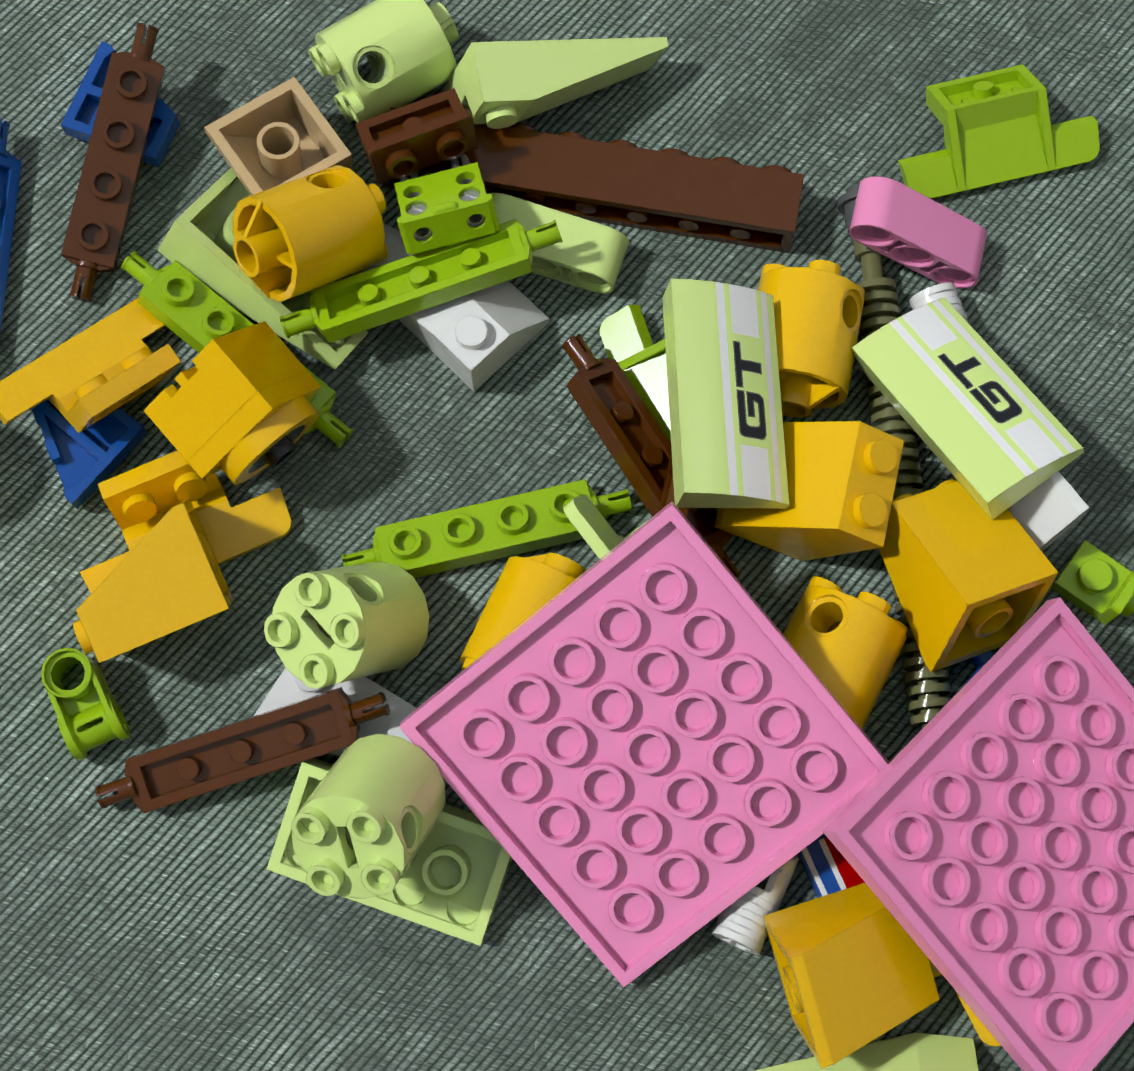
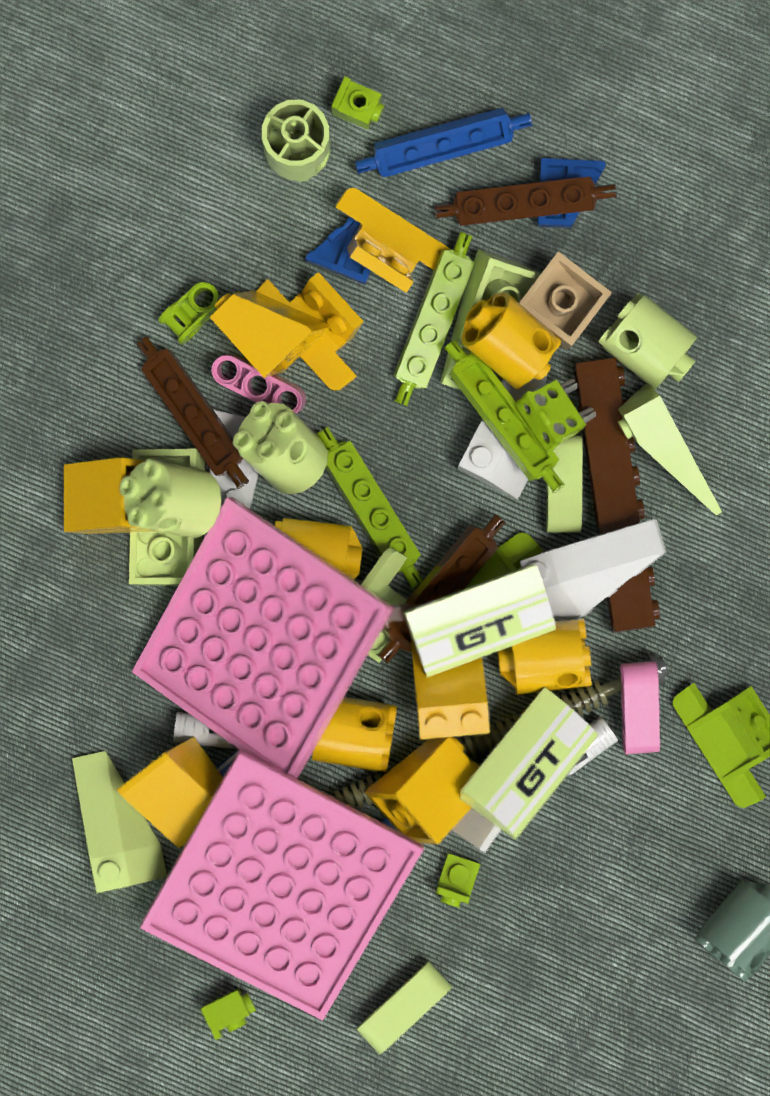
camera: 70 degrees right, 10 degrees up
(210, 644) = (242, 382): none -> bright pink beam
(238, 405) = (388, 338): yellow piece -> none
(323, 947) = (94, 497): none -> yellow slope
(417, 136) = (594, 382): reddish brown bracket -> none
(691, 211) = (594, 569): none -> white wedge

